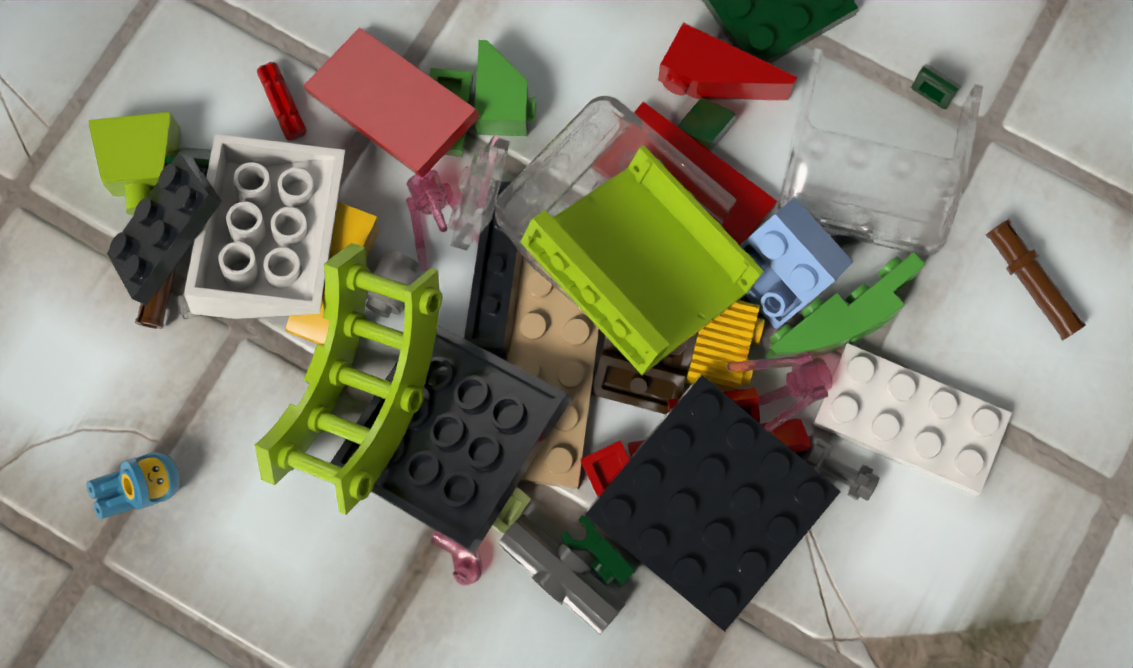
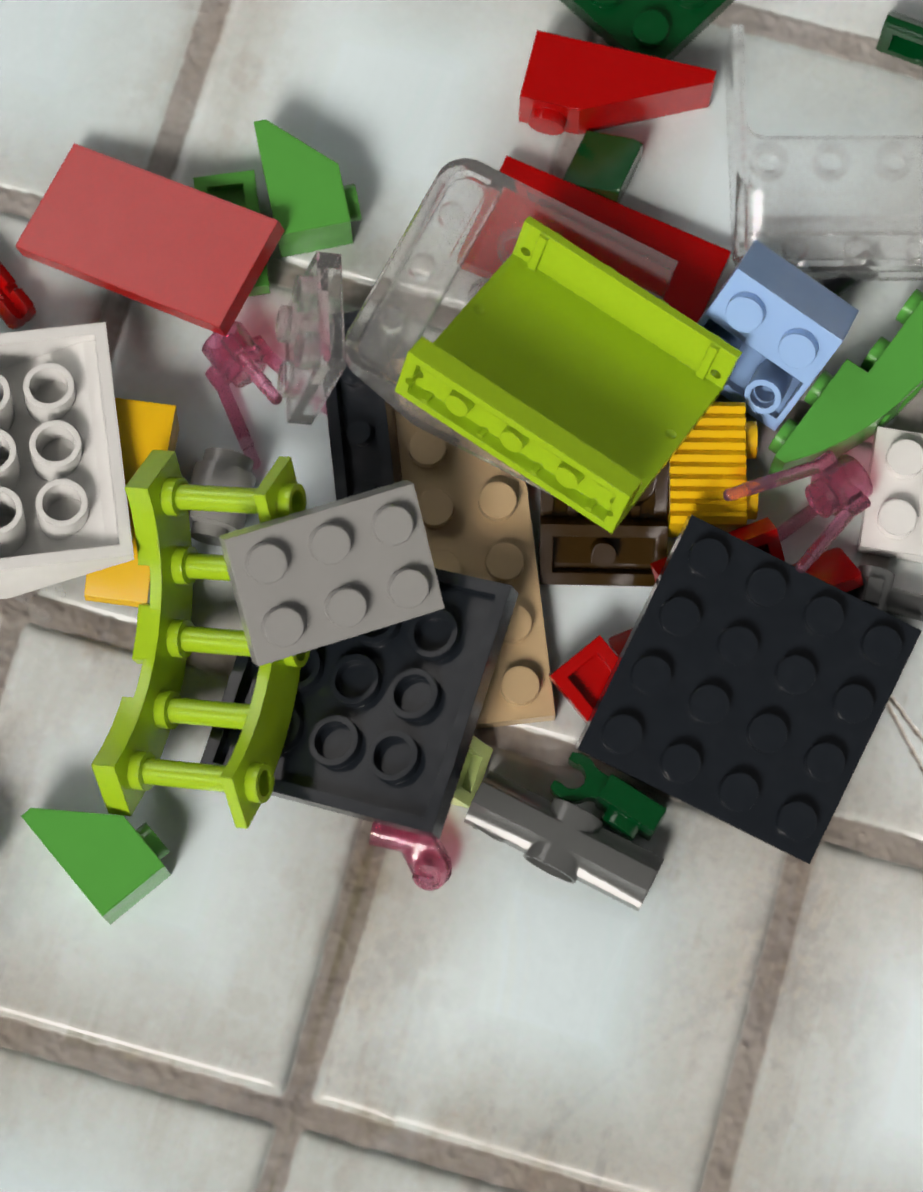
camera: 15 degrees left, 0 degrees up
(250, 508) = (103, 856): none -> bright green slope
(445, 355) = (332, 572): none -> light grey plate

